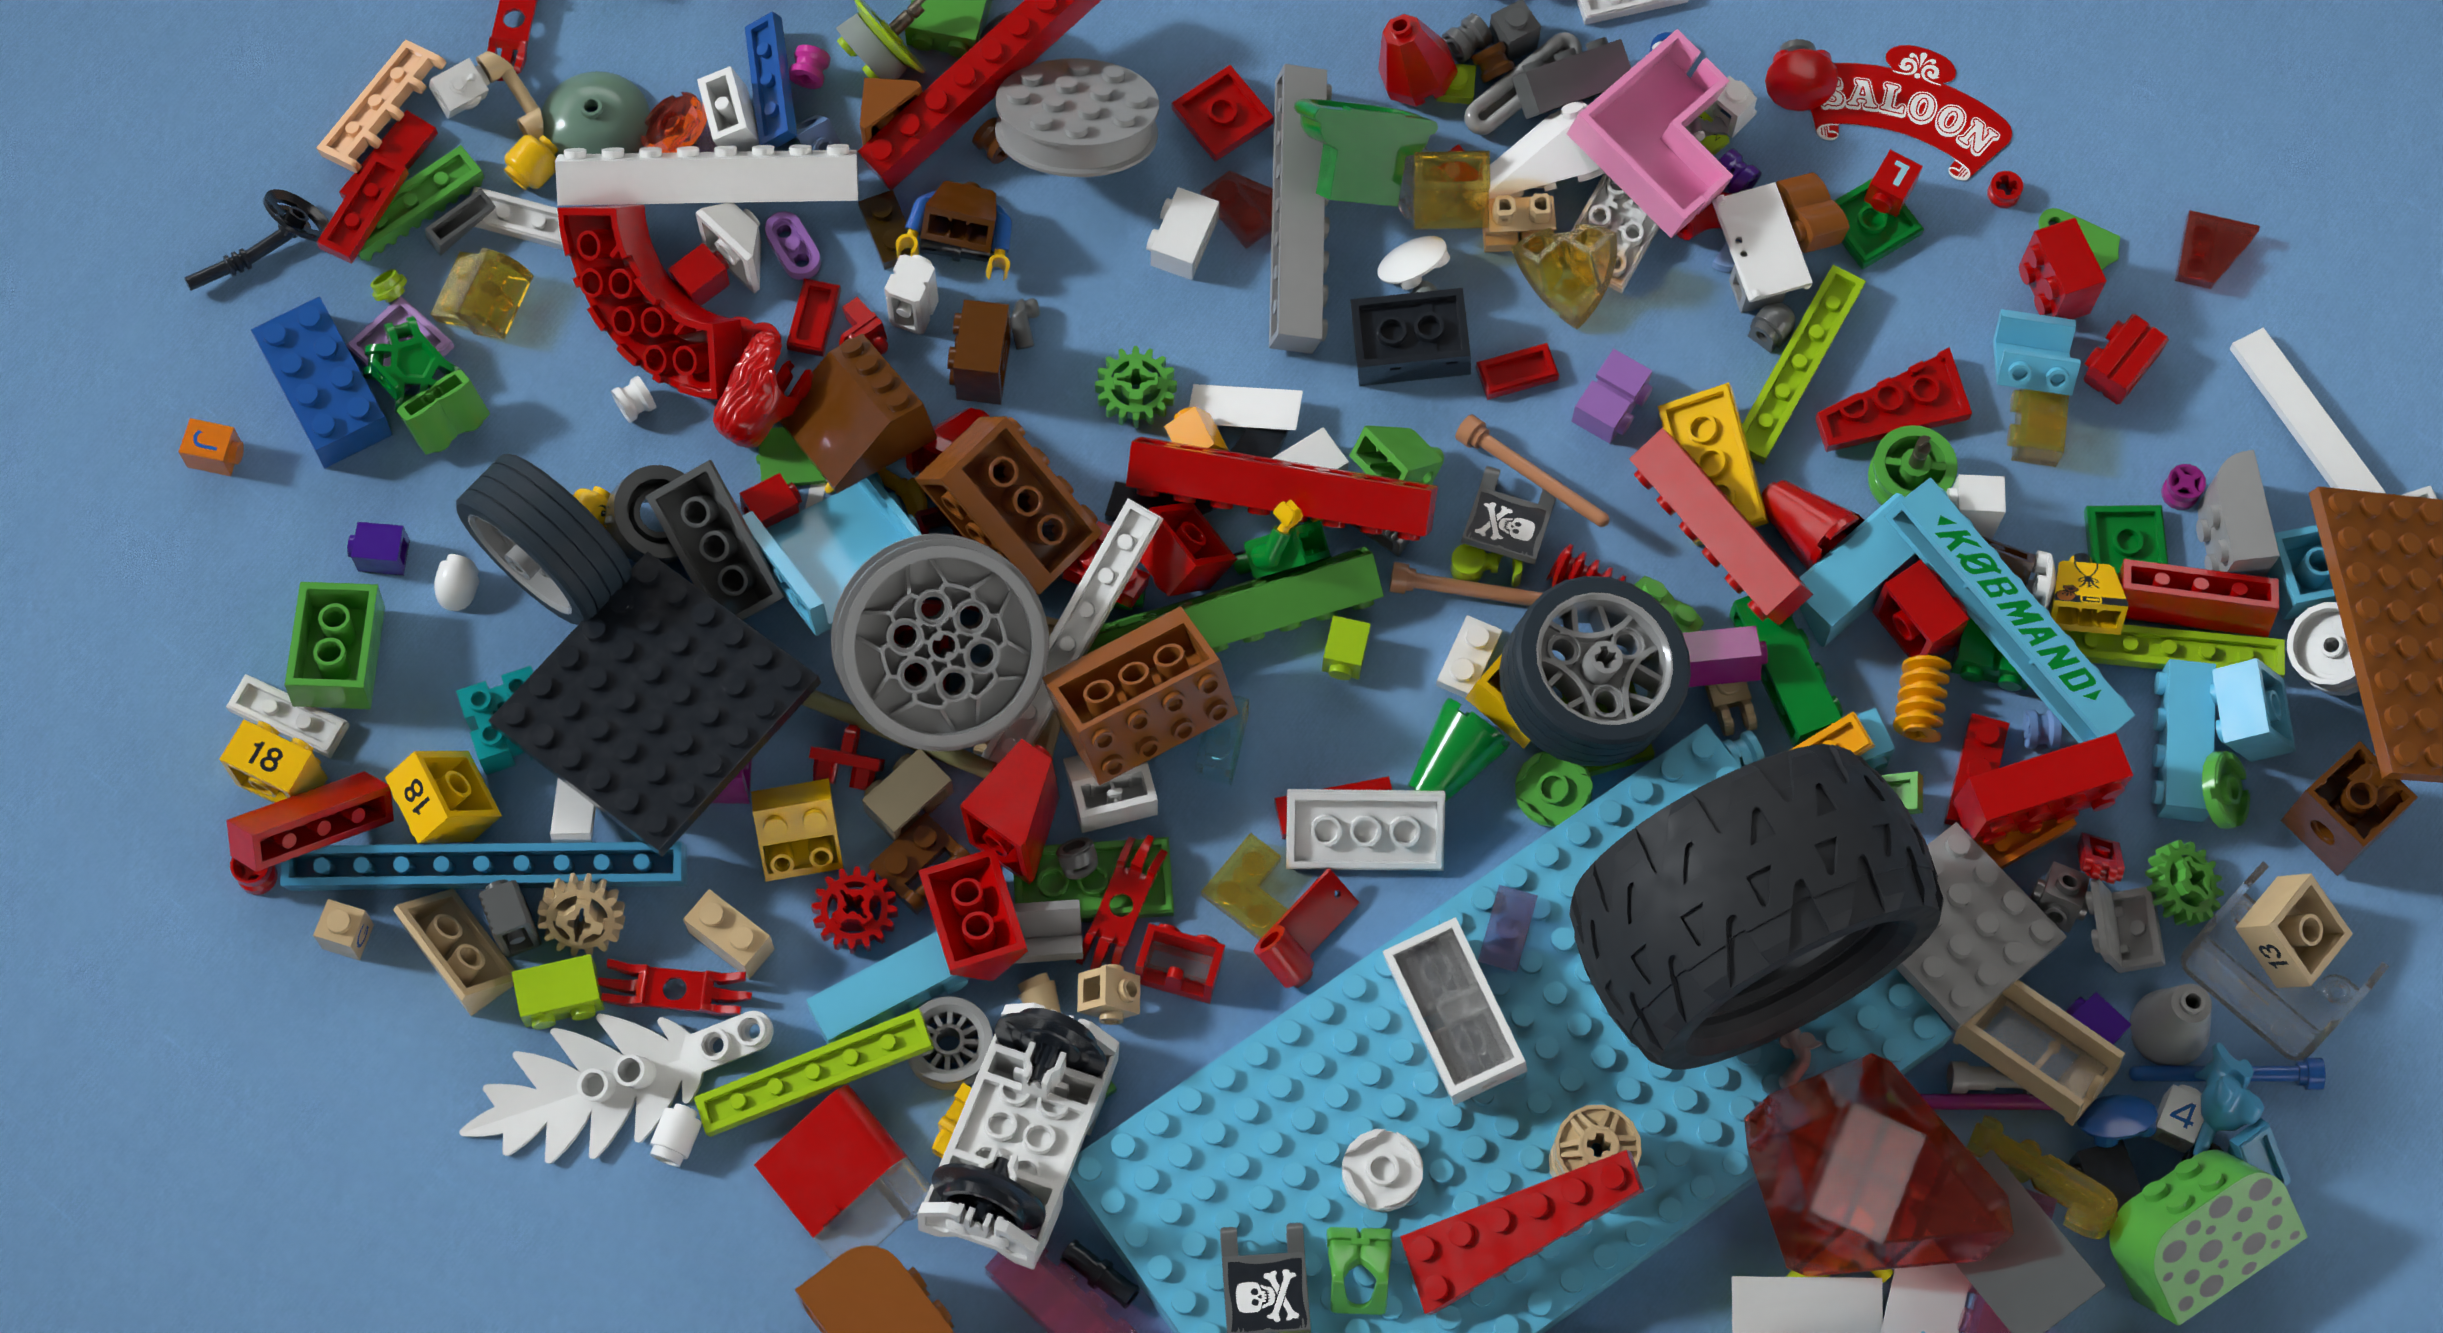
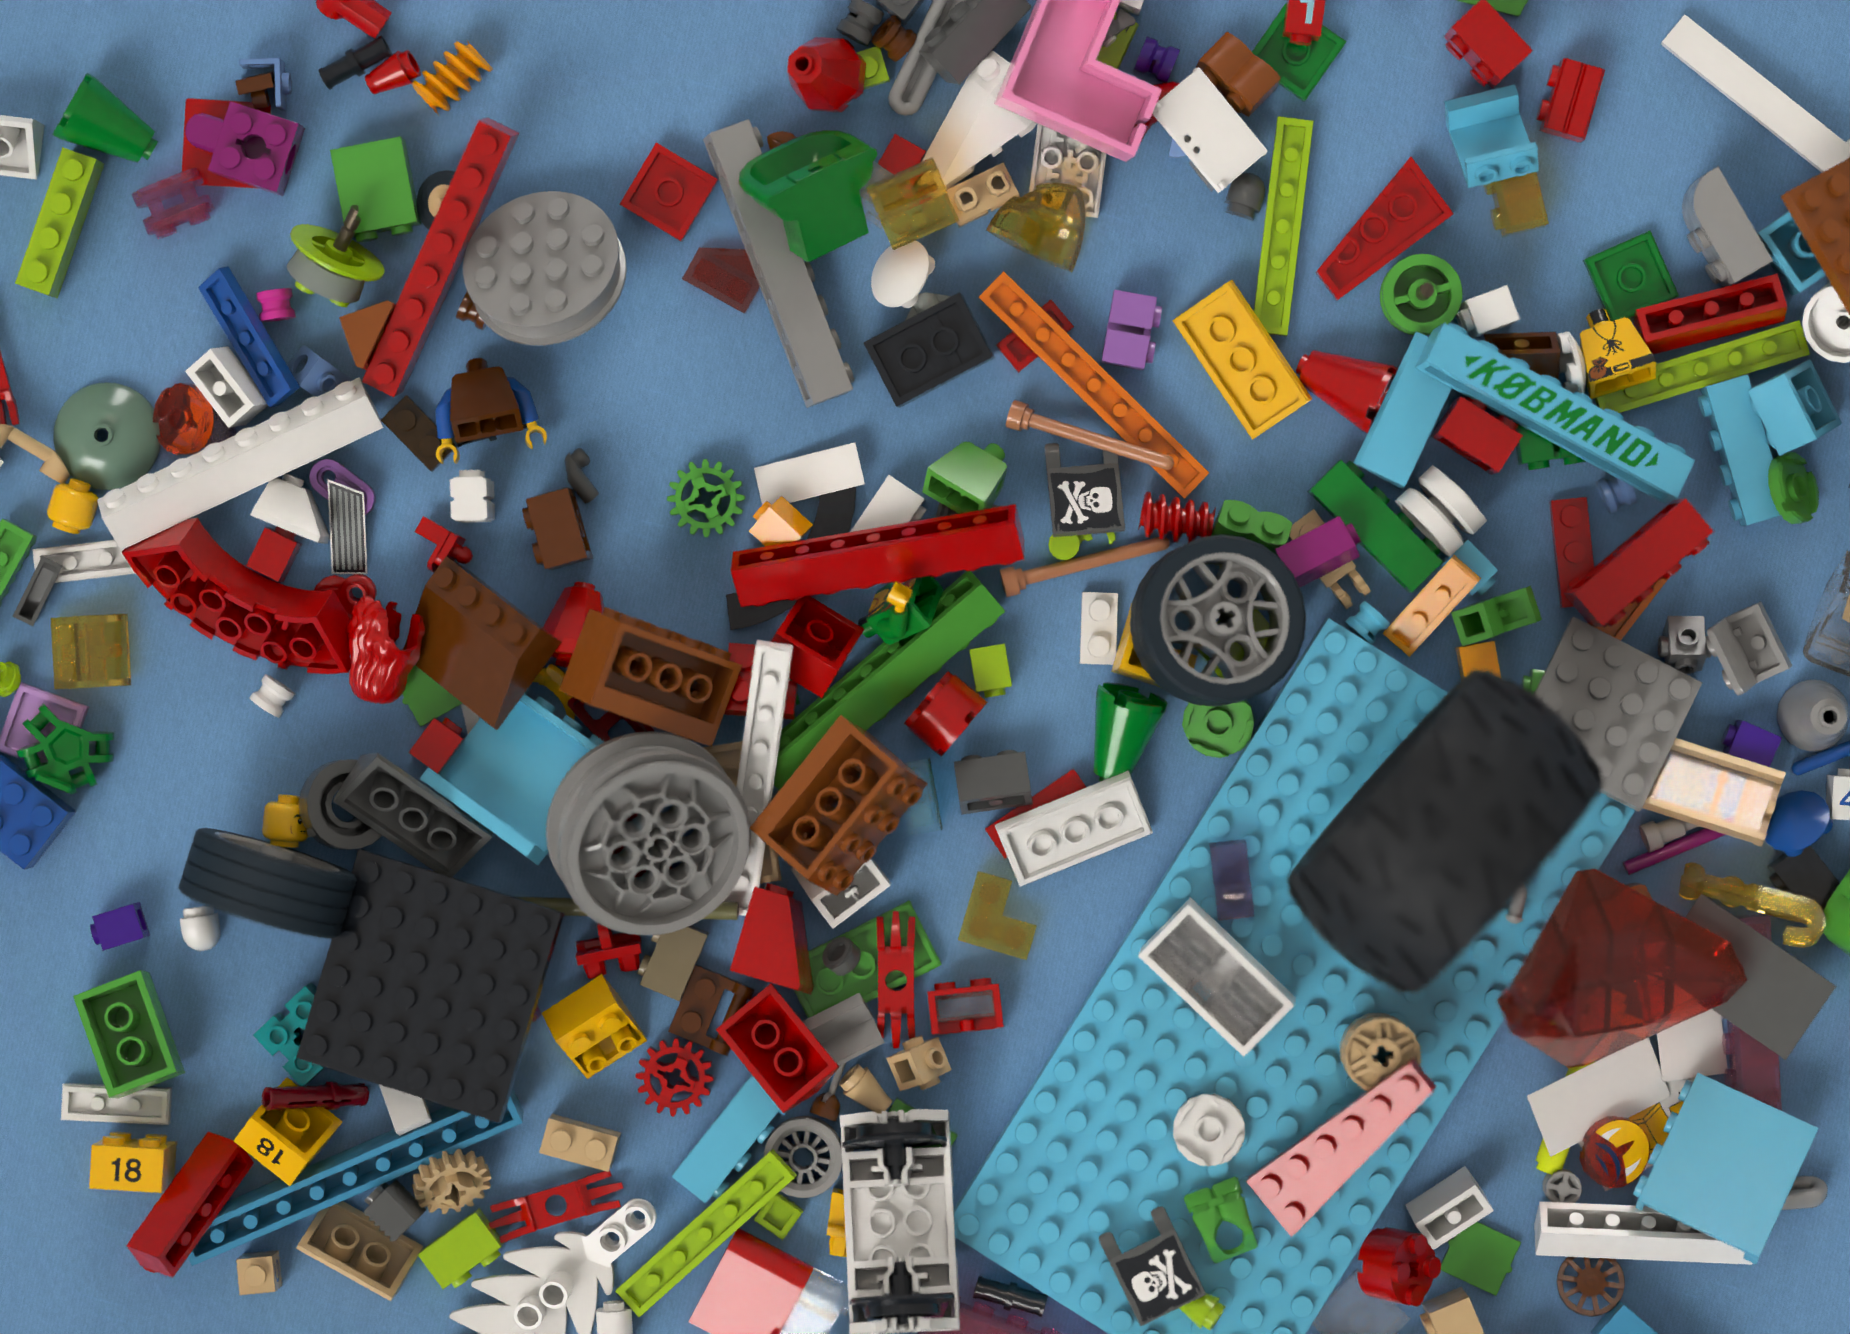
camera: 20 degrees left, 20 degrees up
(443, 412) = (114, 782): bright green brick -> none
(501, 783) = (329, 1095): none -> dark red pin
(779, 279) = (347, 529): none -> sticker
(813, 317) = (391, 546): red tile -> none
(896, 1094) = (778, 1215): none -> lime tile
(994, 1000) = (827, 1103): none -> reddish brown hinge
(1183, 233) = (685, 329): white brick -> none
(1283, 665) = (945, 713): none -> red brick
(1302, 753) = (993, 782): none -> dark grey brick
(1303, 928) = (1049, 952): red door -> none
(1556, 426) = (1090, 381): none -> orange plate
(1720, 526) = (1272, 429): brick -> none
(1859, 668) = (1445, 506): none -> white wheel
(1918, 698) = (1503, 509): light orange piece -> none
(2100, 858) = (1707, 599): red hinge -> none
(2184, 883) = (1785, 587): bright green gear -> none
(2186, 478) = (1668, 200): magenta wheel -> none

